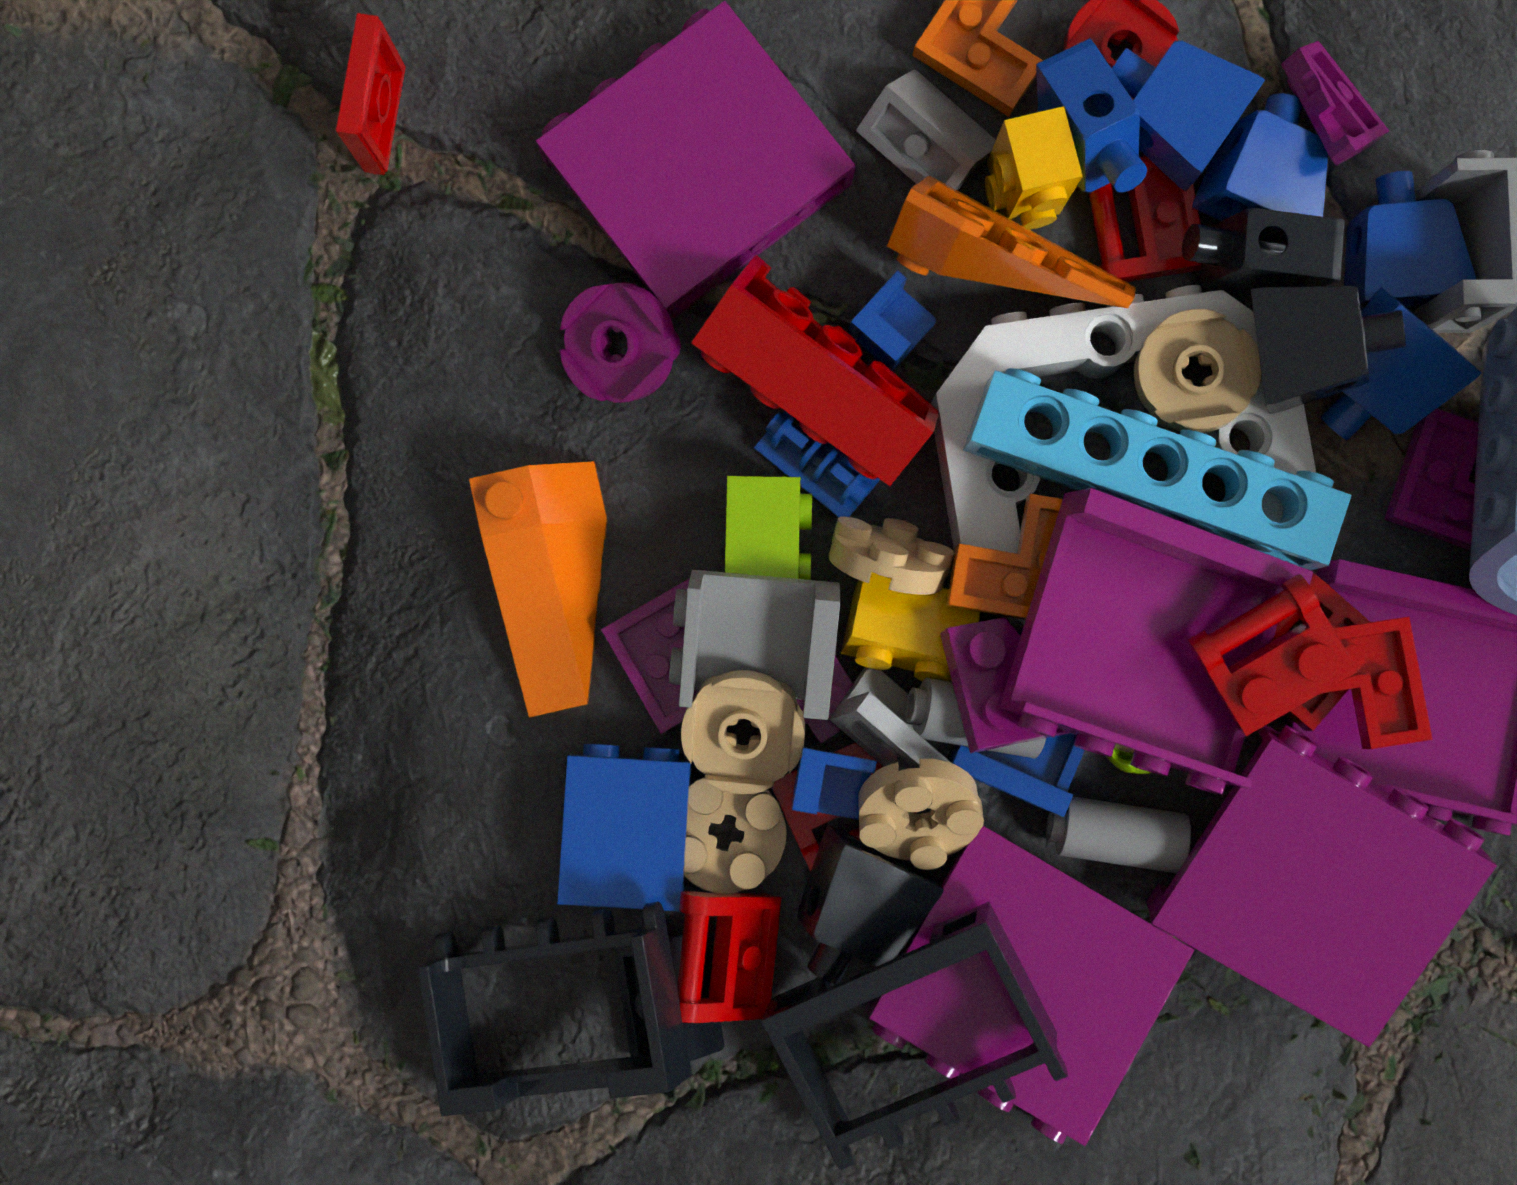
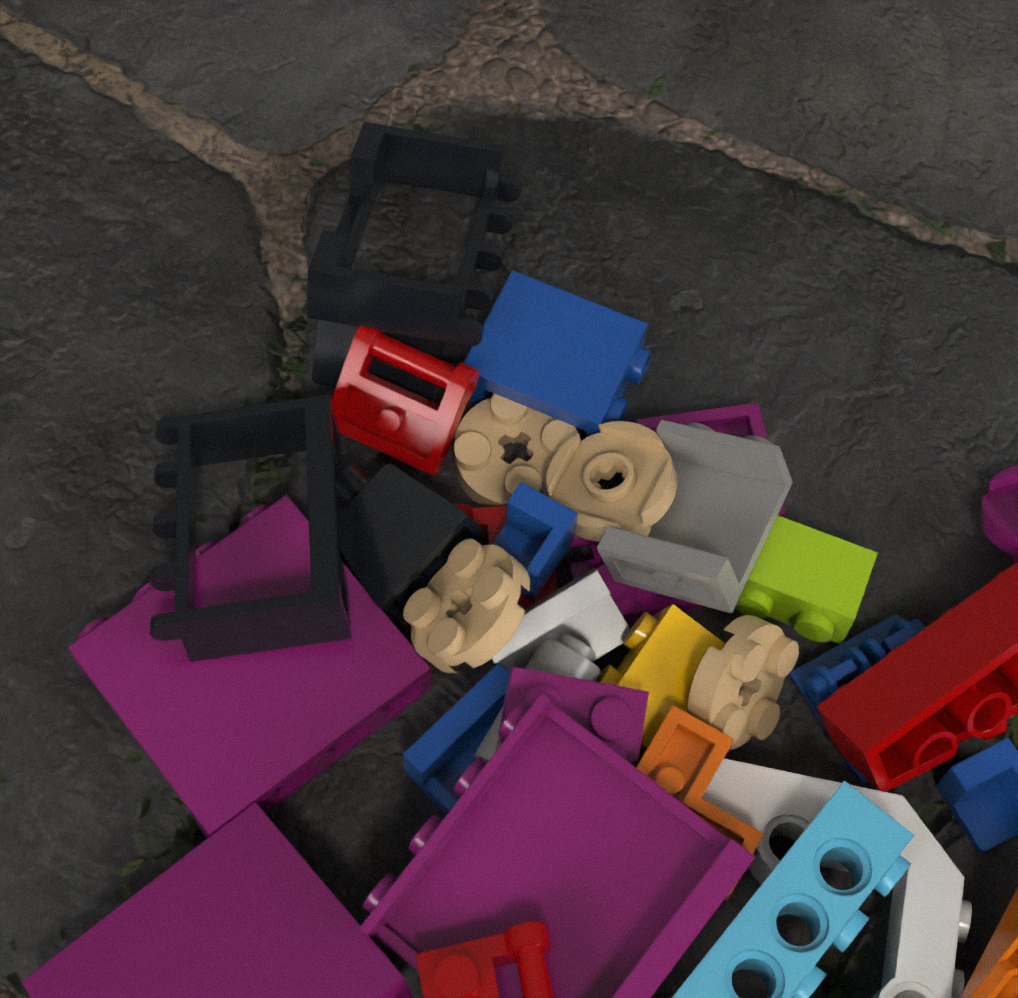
camera: 110 degrees right, 20 degrees down
(545, 559) = (846, 378): orange wedge -> none
(1121, 834) = (360, 818): light grey brick -> none

